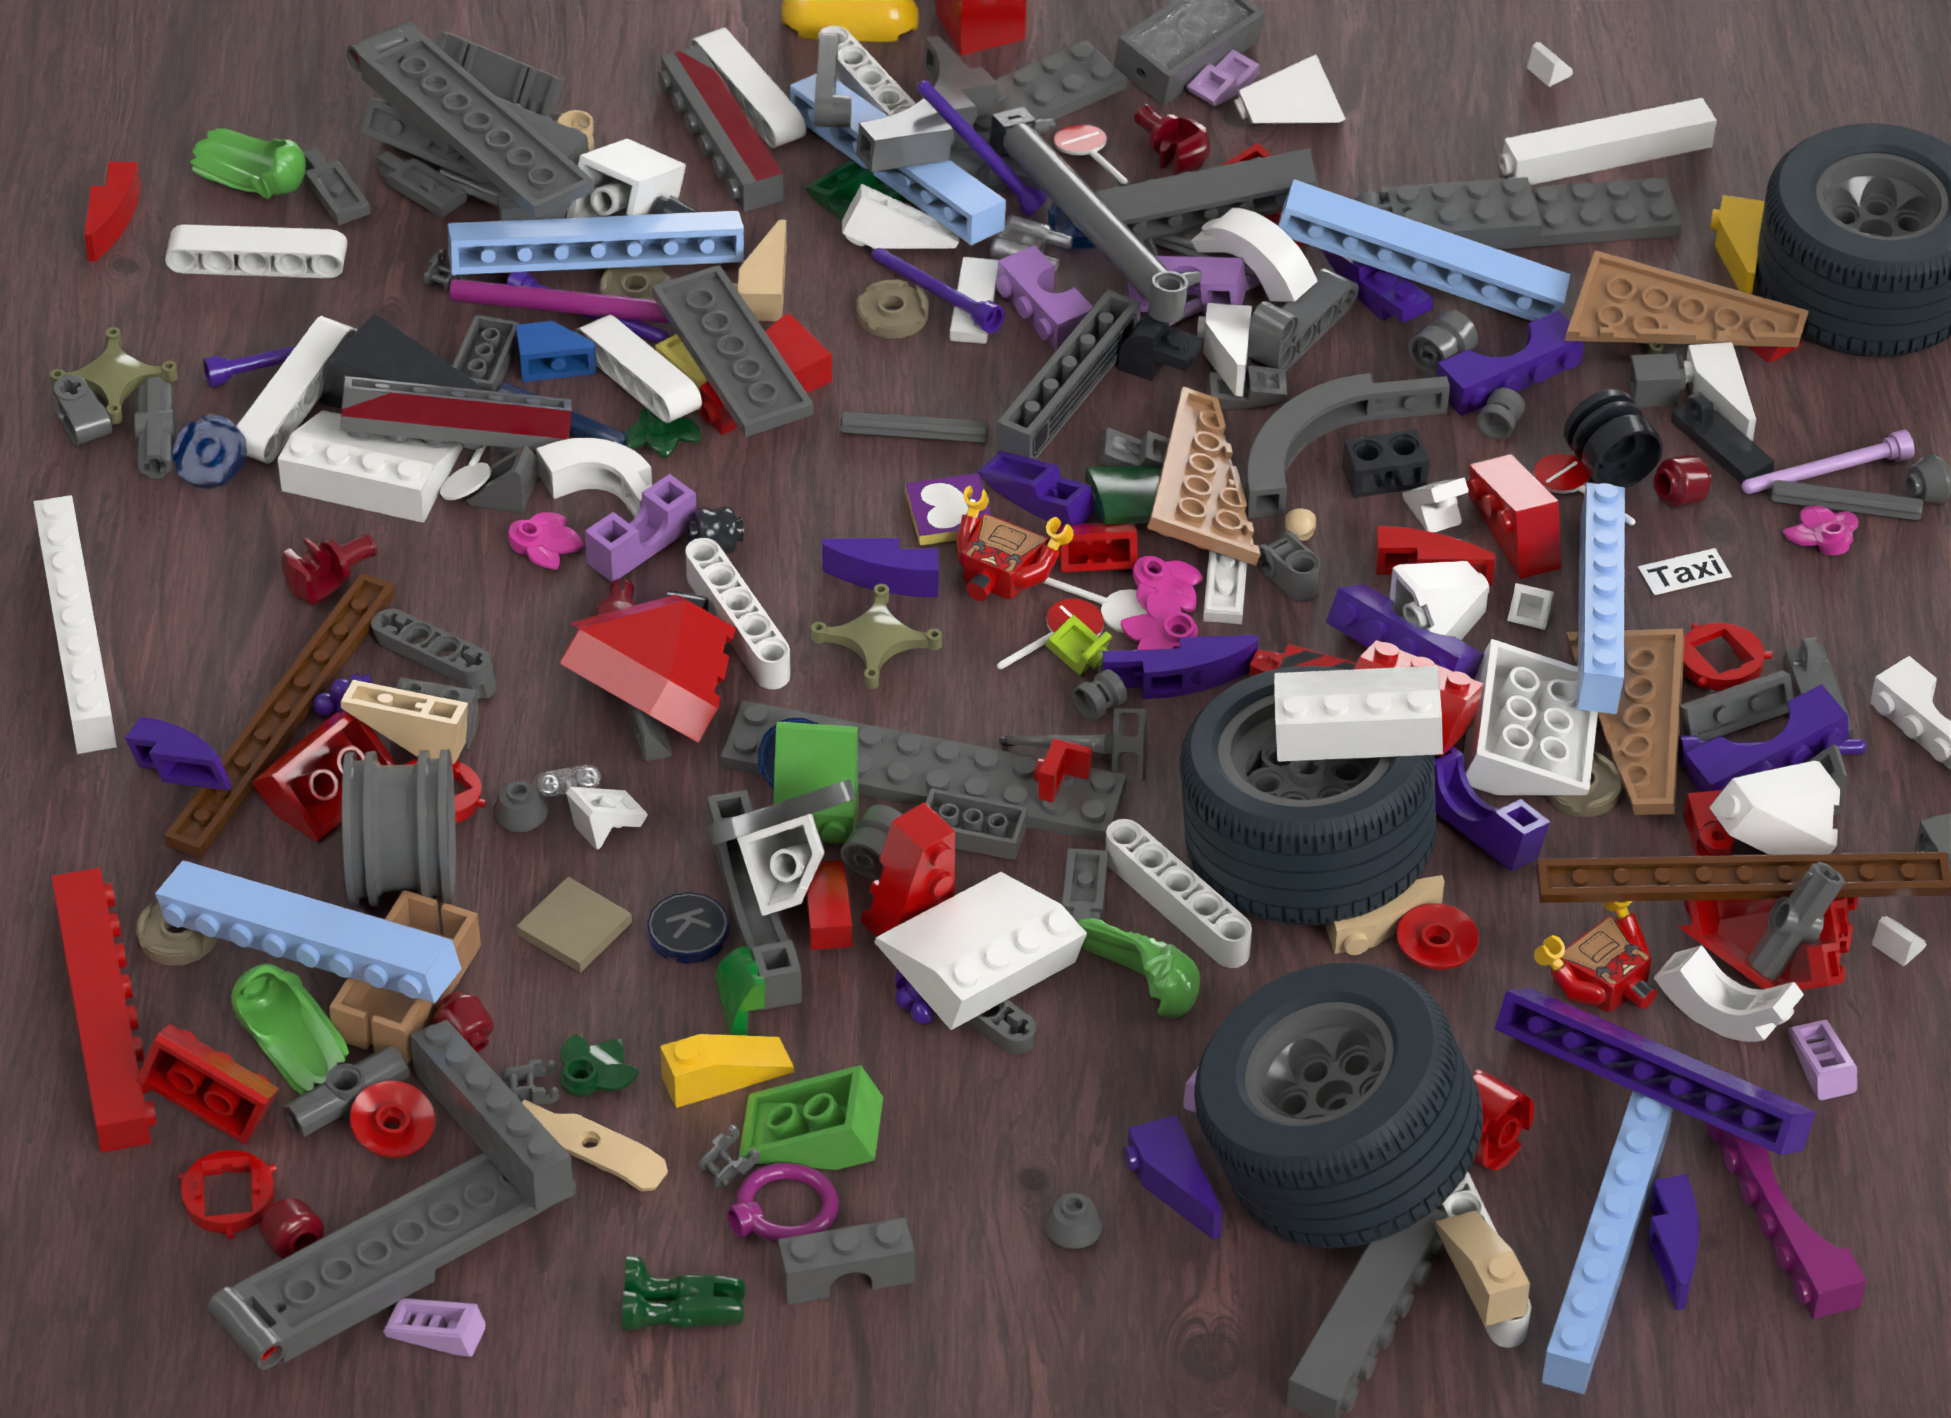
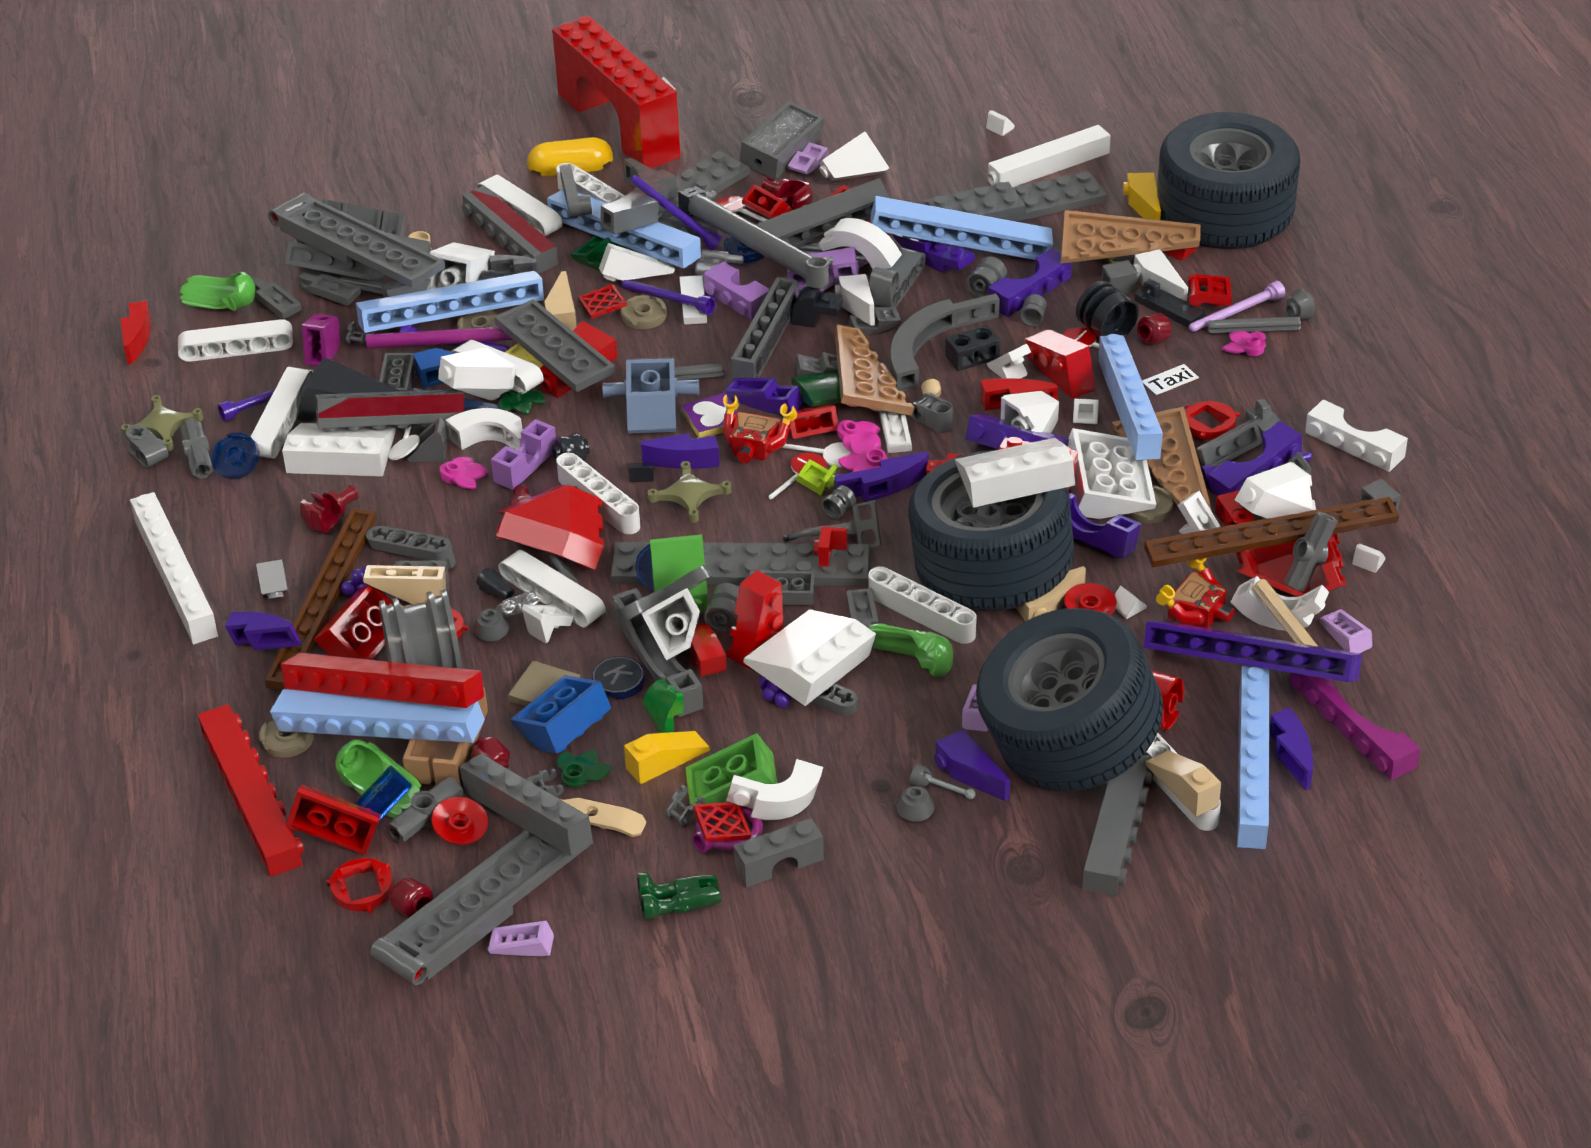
camera: 10 degrees left, 5 degrees down
(215, 670) = (272, 578): none -> light grey slope
(293, 1053) = (385, 792): none -> clear blue slope
(325, 880) = (383, 680): none -> red brick
(384, 273) = (320, 338): none -> magenta torso
(541, 738) = (493, 584): none -> black cone
(586, 973) = (562, 713): none -> blue slope
(600, 379) = (478, 373): none -> white slope
(626, 760) = (554, 588): none -> white beam
(710, 194) = (512, 264): none -> flat silver slope
(776, 1219) = (718, 807): none -> red window
(814, 586) = (641, 472): none -> black slope
(834, 295) = (603, 310): none -> red window
(861, 456) = (651, 394): none -> sand blue slope
(873, 1176) = (779, 799): none -> white arch
(1097, 1177) = (922, 776): none -> hinge
(1130, 153) = (764, 203): none -> red brick
(1497, 947) = (1127, 603): none -> white slope
(1649, 824) = (1197, 514): none -> white slope
(1728, 1021) = (1282, 613): none -> tan axle
(1805, 430) = (1217, 290): none -> red plate

